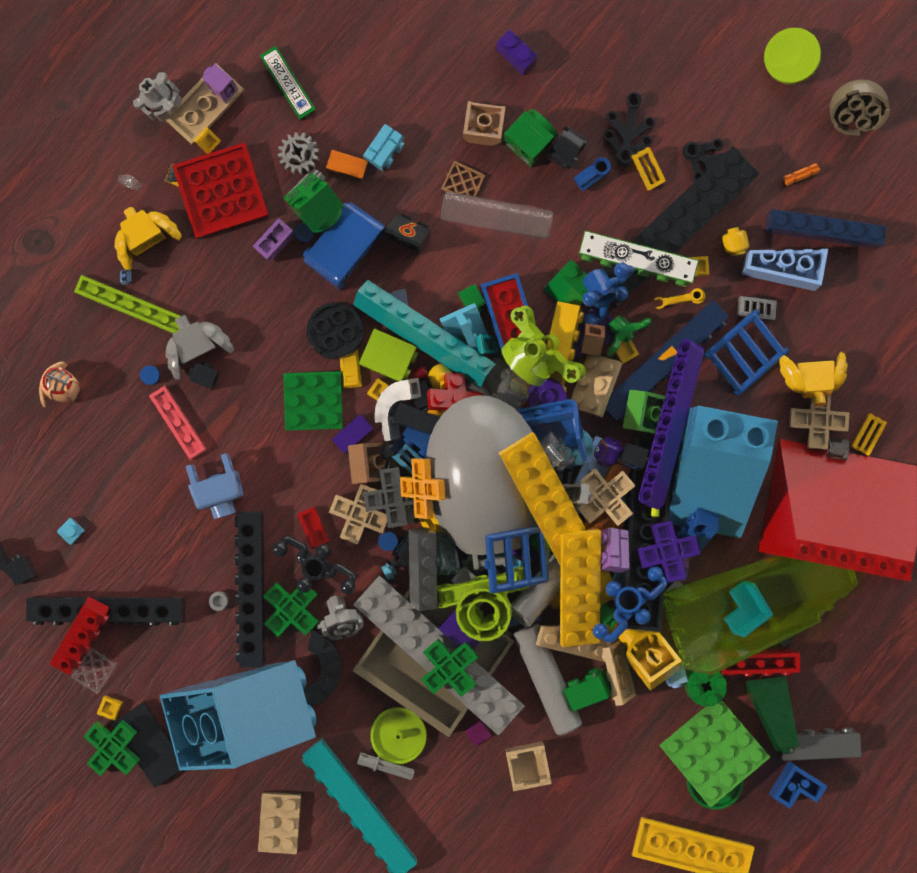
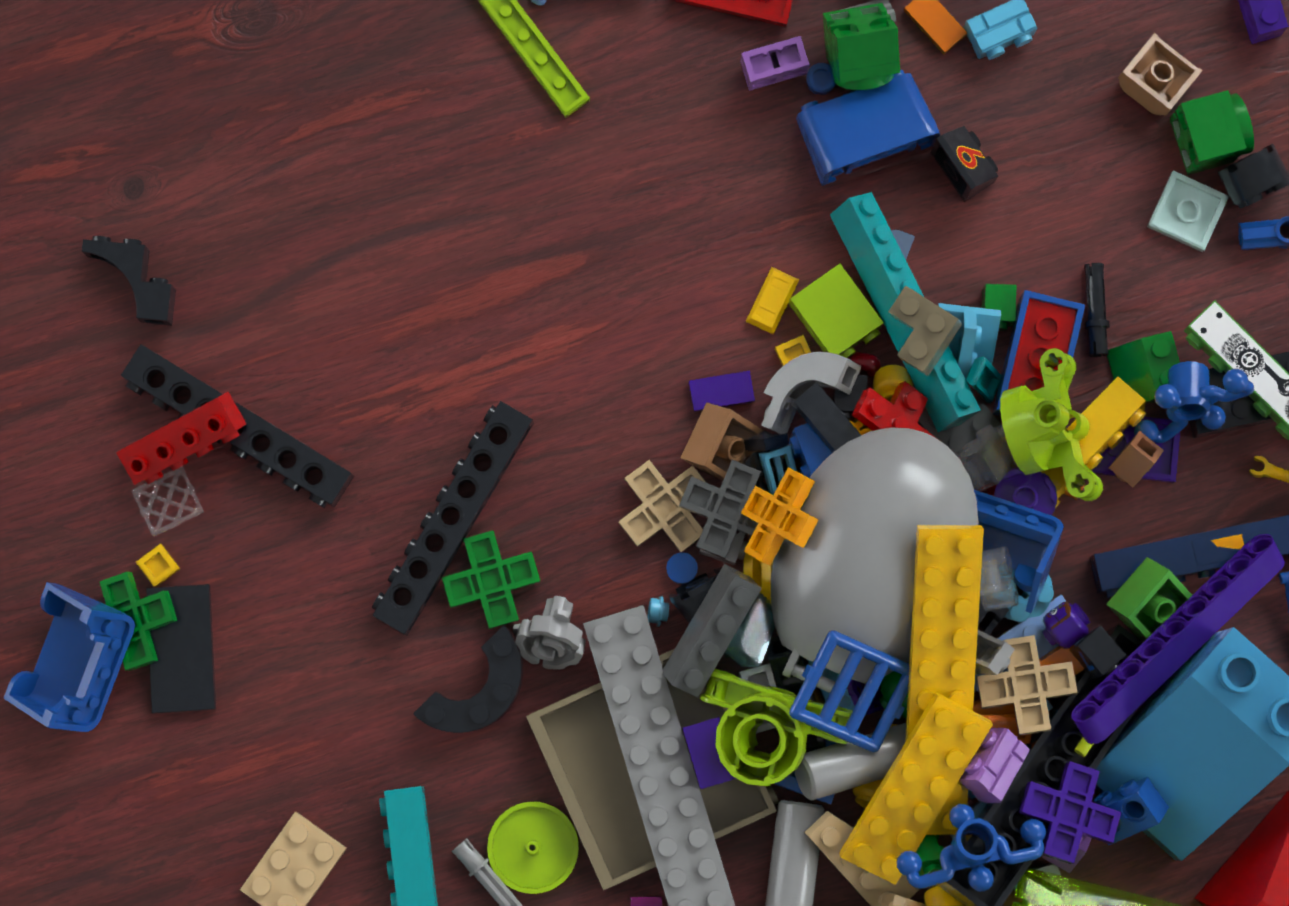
camera: 35 degrees right, 5 degrees down
(61, 385) = (365, 87): light nougat piece -> none
(70, 531) = (254, 291): medium azure plate -> none
(97, 788) = (74, 663): none -> blue windscreen
(150, 375) = (492, 145): blue tile -> none
(177, 422) = (490, 232): coral tile -> none
(193, 341) = (579, 134): light grey torso -> none
(204, 375) = (566, 188): black brick -> none
(217, 491) = (489, 355): medium blue piece -> none
(219, 601) = (398, 509): light grey tile -> none
(239, 717) = (333, 678): dark azure slope -> none
(313, 401) = (694, 313): green plate -> none
(313, 527) = (589, 487): red tile -> none
(328, 570) = (556, 518): black wheel -> none
(335, 331) = (783, 236): black tile -> none
(444, 340) = (931, 328): none -> dark tan brick
(449, 667) = (666, 789): green plate -> none
(469, 170) = (1095, 159): medium nougat window -> none
(496, 215) = (1102, 210): clear cylinder -> none
(529, 277) = (1096, 310): none -> black pin
(542, 187) = (1187, 211): none -> light aqua tile
(597, 385) = (1104, 524): tan plate -> none
(624, 332) = (1186, 475): green piece -> none
(626, 352) = (1171, 505): yellow tile -> none

